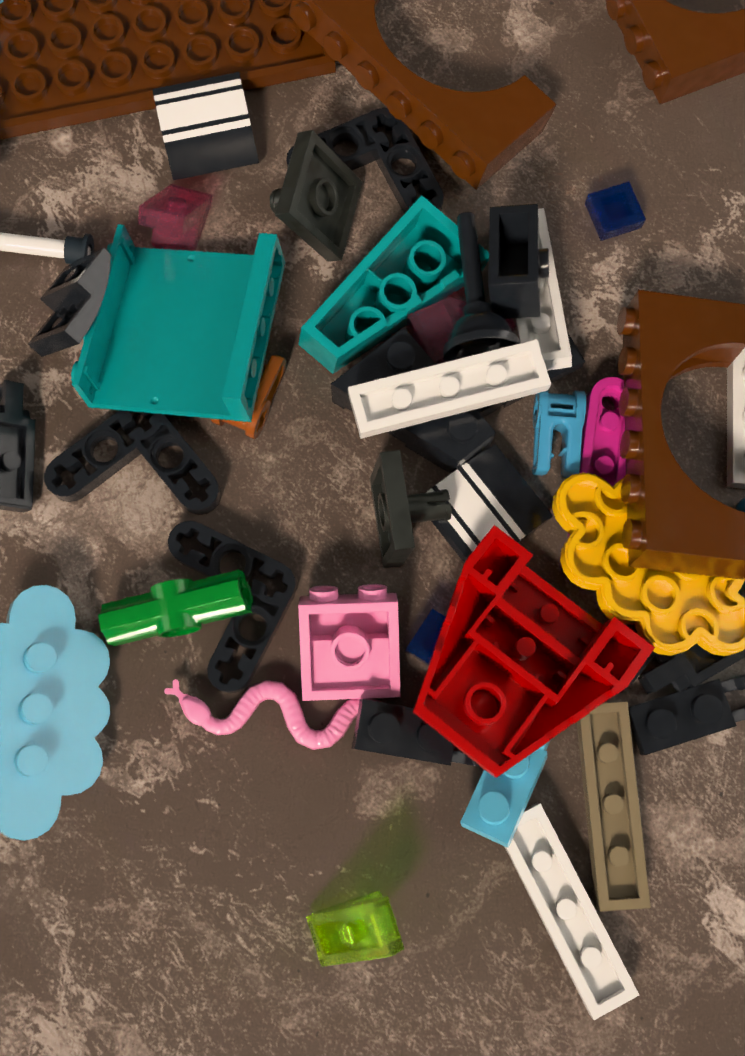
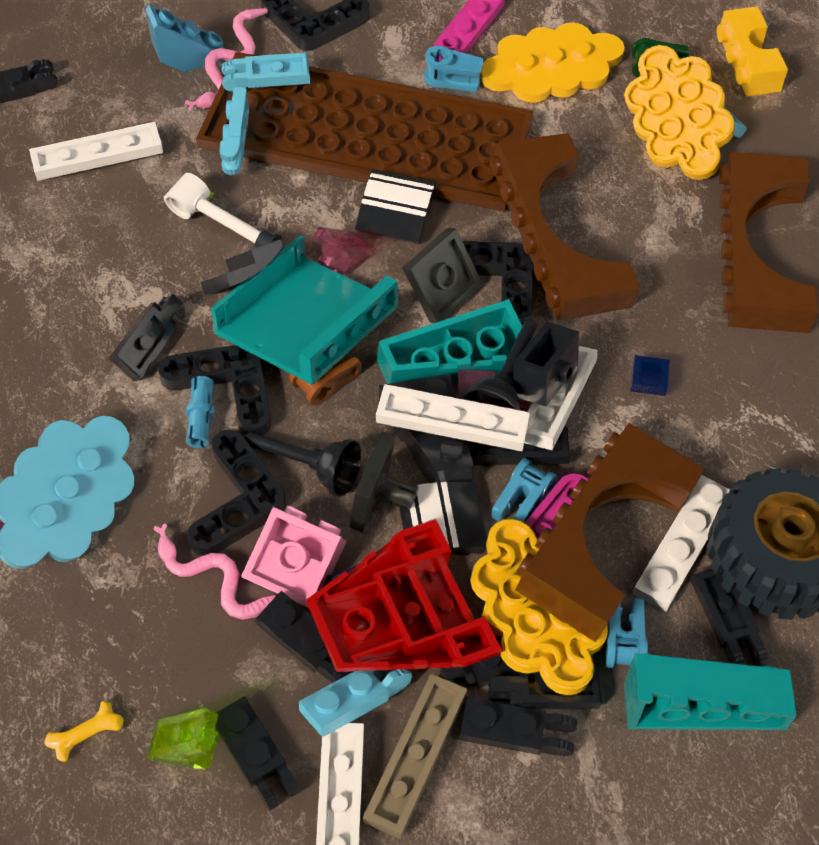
camera: 30 degrees right, 20 degrees down
(129, 515) = (200, 412): none -> dark azure pin
(175, 608) = (193, 476): green piece -> none
(219, 1001) = (65, 741): none -> yellow piece
(329, 507) = (334, 464): none -> black piece
(433, 893) = (253, 750): none -> black hinge

